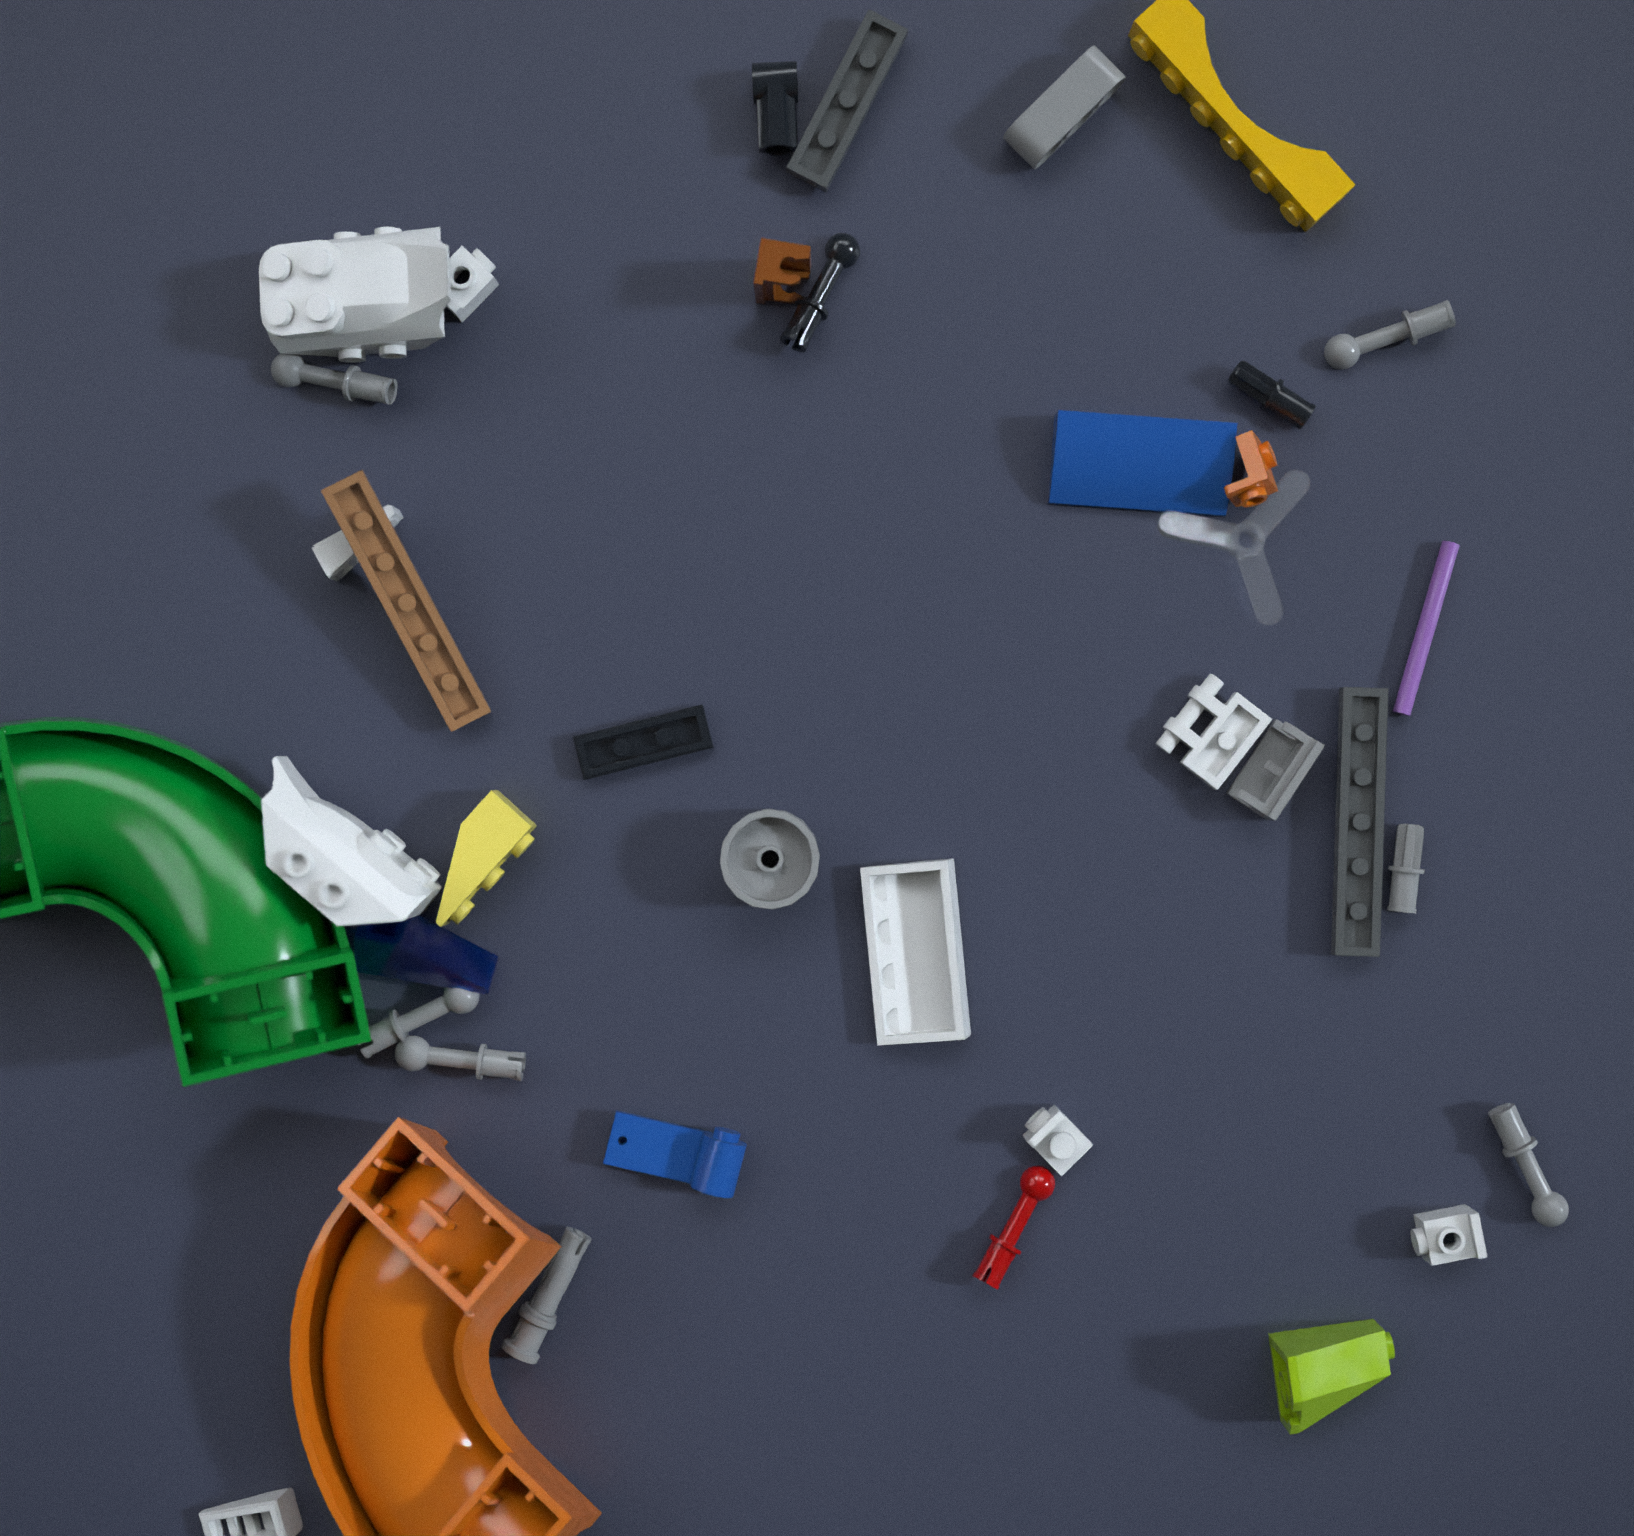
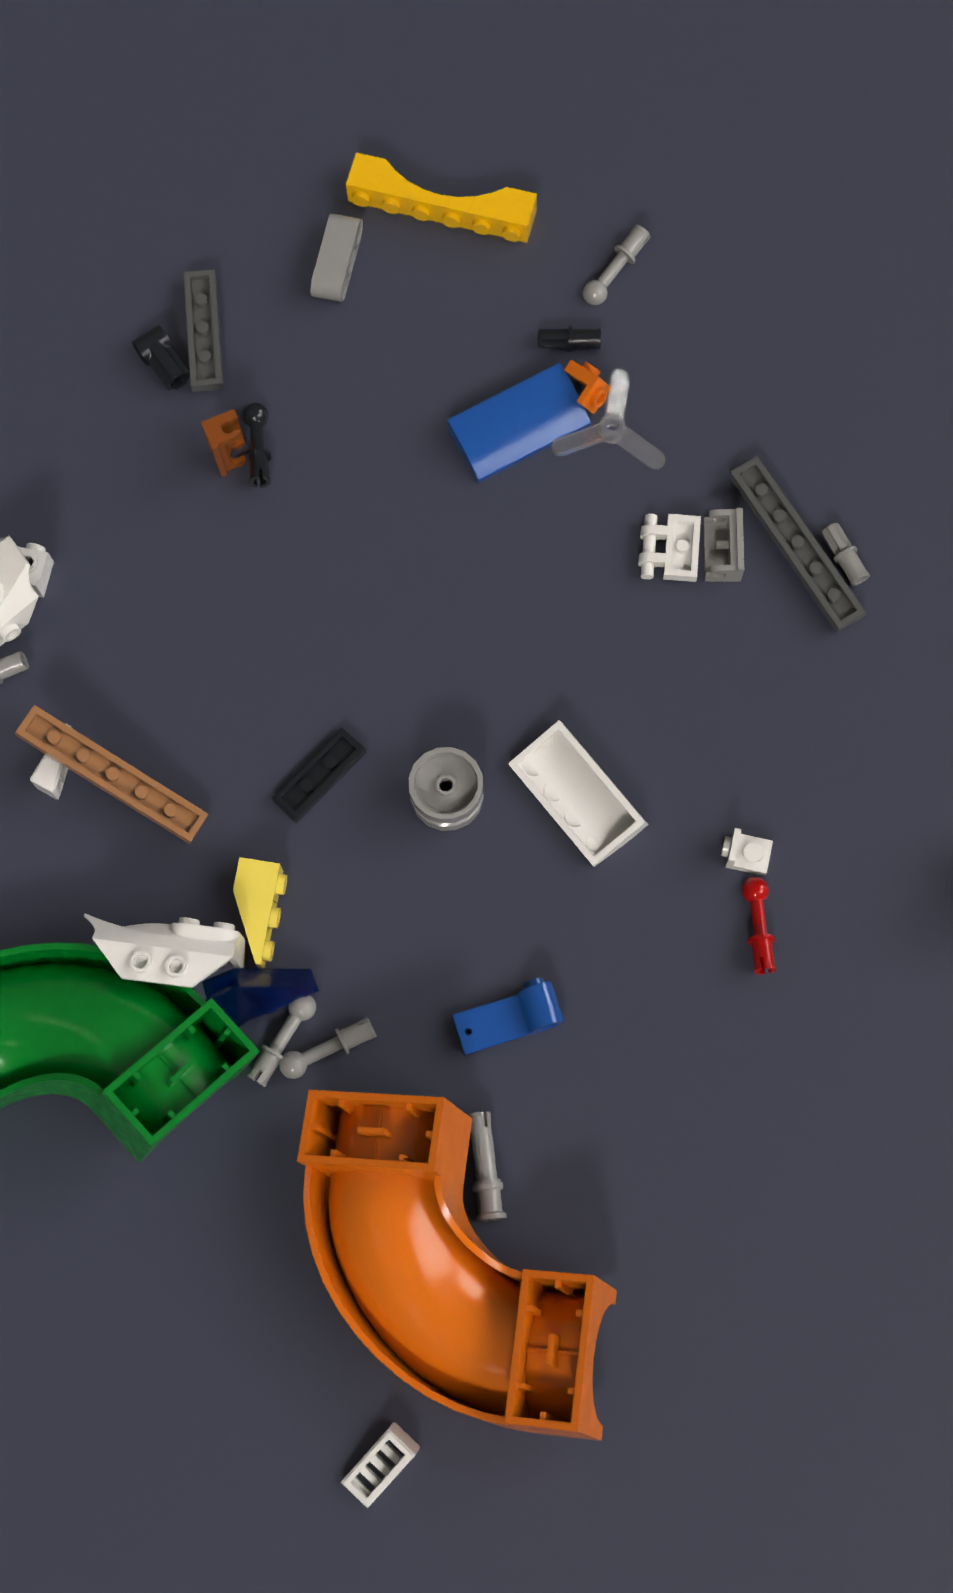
camera: 25 degrees left, 15 degrees down
(1426, 628) = (756, 412): medium lavender bar -> none

